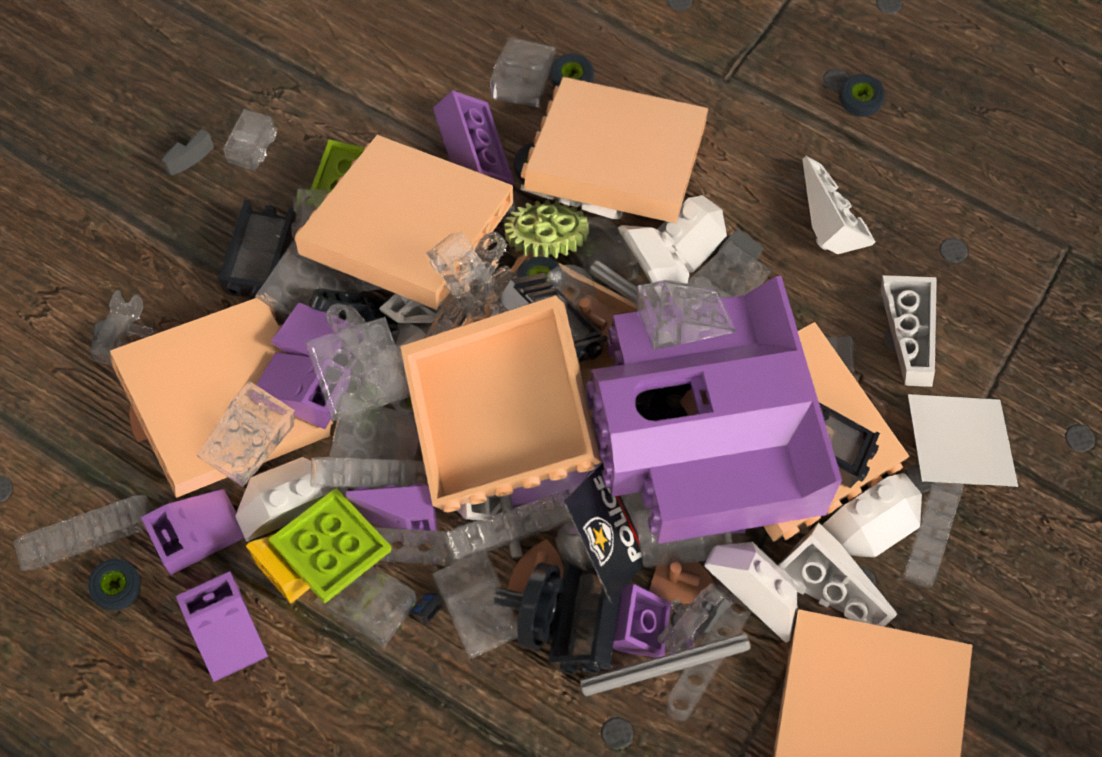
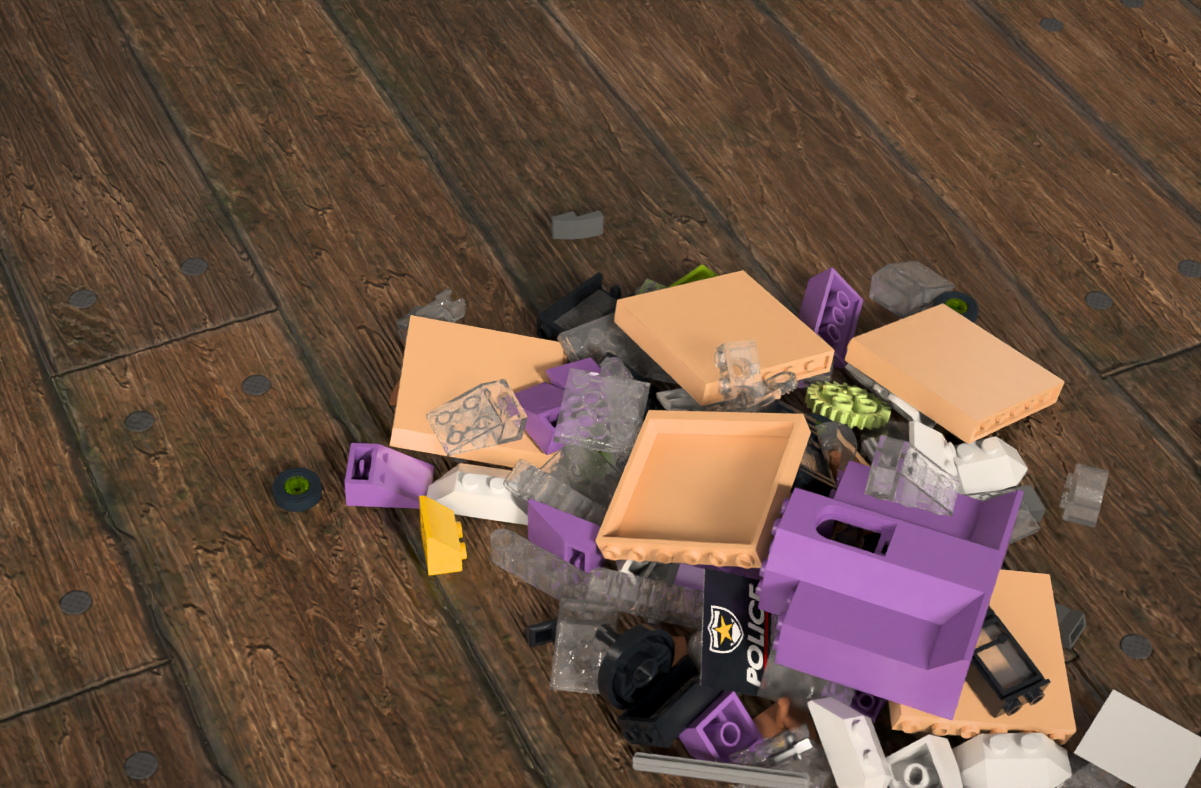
camera: 30 degrees right, 20 degrees down
(81, 533) = (296, 440): clear beam -> none
(222, 626) = (360, 554): medium lavender slope -> none
(250, 140) = (634, 236): clear brick -> none
(330, 545) = (489, 534): lime plate -> none
(372, 605) = (495, 601): clear slope -> none
(784, 214) = (1084, 495): none -> clear brick
(830, 213) = (1132, 516): white wedge -> none
(912, 322) = (1156, 632): white wedge -> none

